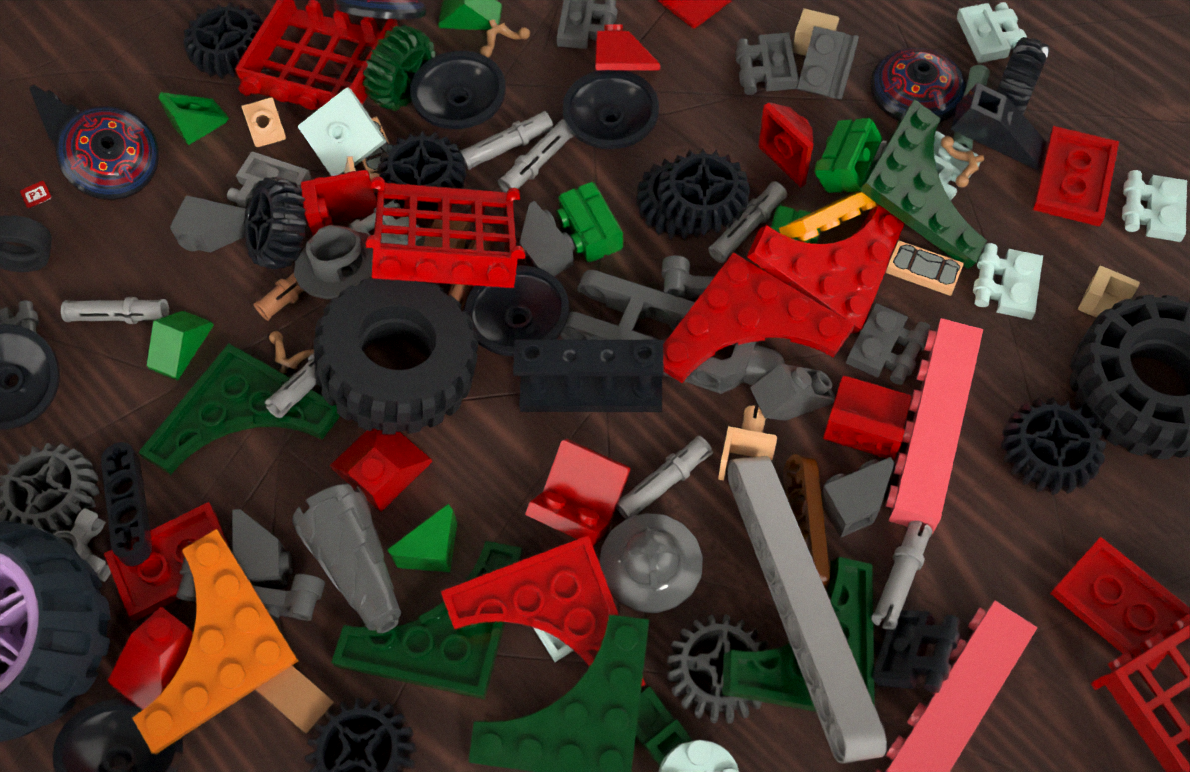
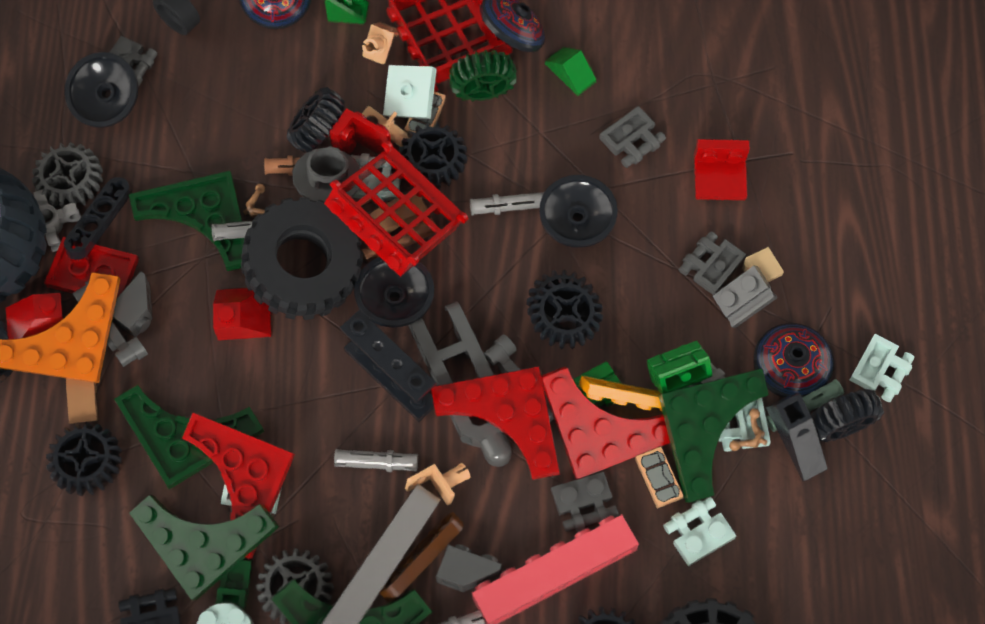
camera: 40 degrees right, 5 degrees up
(128, 310) = (200, 103): light grey pin -> none
(175, 342) = (207, 143): green slope -> none
(207, 224) = (285, 85): dark grey slope -> none
(260, 167) = (349, 82): light grey plate -> none
(347, 547) = (175, 346): dark grey cone -> none
(428, 545) = (222, 382): green slope -> none
(458, 90) = (503, 107): black dish -> none
(517, 135) = (502, 176): light grey pin -> none
(524, 33) = (588, 112): medium nougat piece -> none
(544, 243) = (452, 262): dark grey slope -> none
(580, 492) = (318, 428): bracket -> none
(590, 222) = (494, 272): green brick -> none
(622, 51) = (624, 181): red slope -> none
(651, 563) = (316, 498): dark grey helmet -> none
(757, 212) = (586, 354): light grey pin -> none
(787, 140) = (665, 324): red slope -> none
(792, 392) = (496, 478): dark grey slope -> none
(868, 417) = (522, 531): red bracket -> none
(1076, 176) = (818, 507): red plate -> none
(1105, 290) = (745, 593): tan panel -> none
(1165, 206) = (851, 579): light aqua plate -> none

